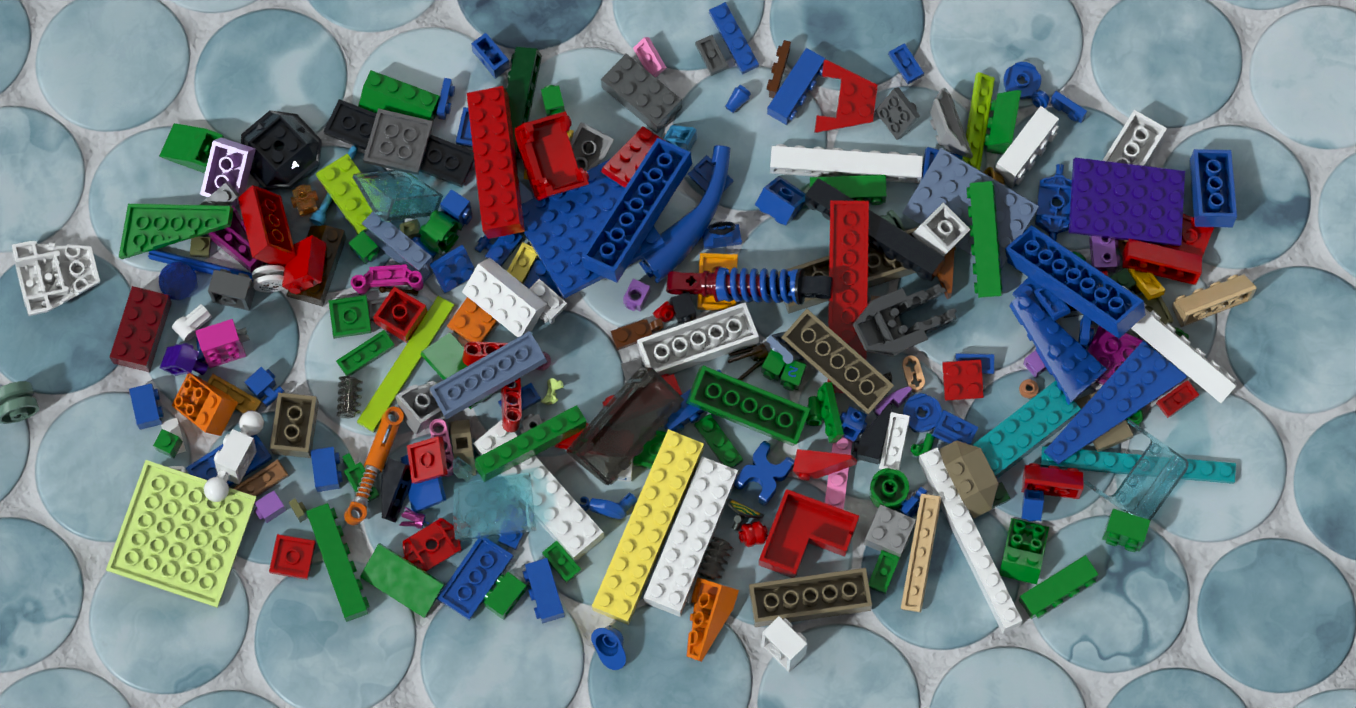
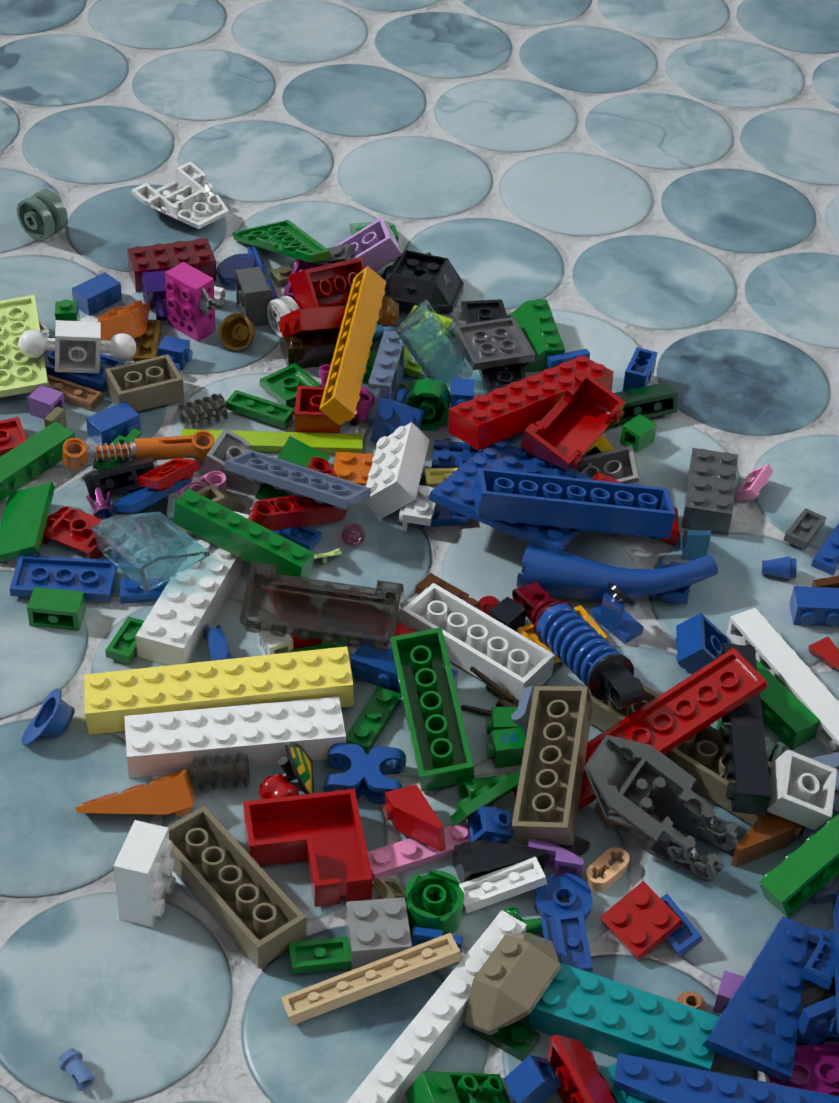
camera: 55 degrees right, 30 degrees down
(266, 323) = (236, 331): none -> pearl gold helmet
(359, 252) = (353, 347): none -> light orange brick
(543, 591) = (81, 638): blue brick -> none
(636, 287) = (488, 575): medium lavender brick -> none
(863, 507) = (388, 888): none -> olive plate

